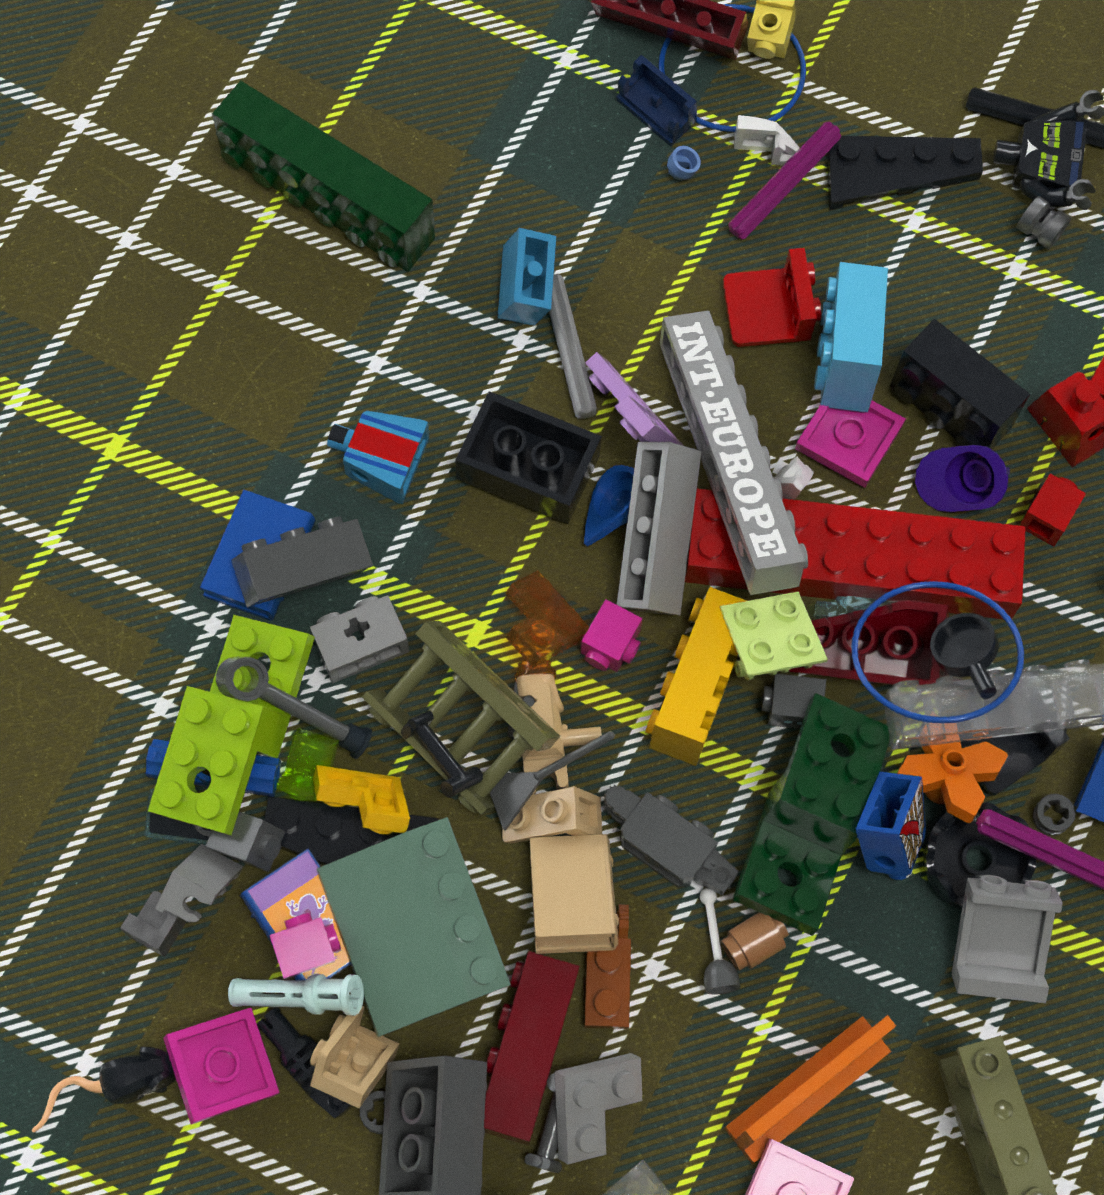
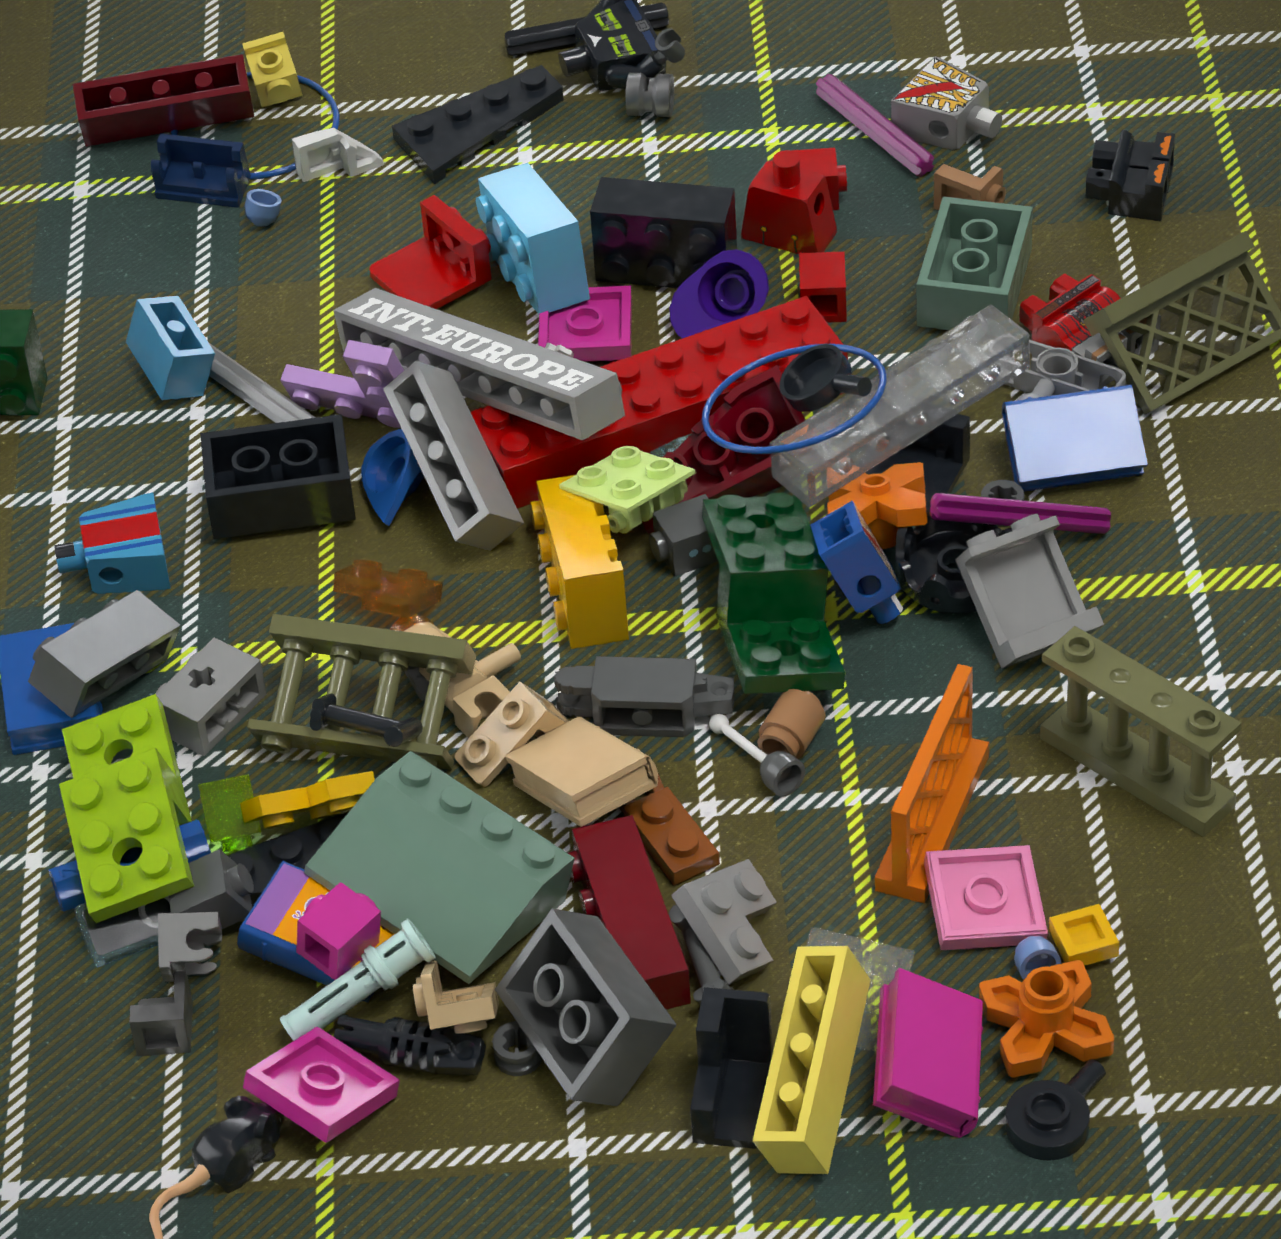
camera: 25 degrees left, 25 degrees down
(349, 736) = (123, 736): dark grey piece -> none
(516, 788) = (461, 726): dark grey piece -> none
(611, 637) = (468, 572): dark pink brick -> none
(784, 180) = (373, 174): magenta axle -> none

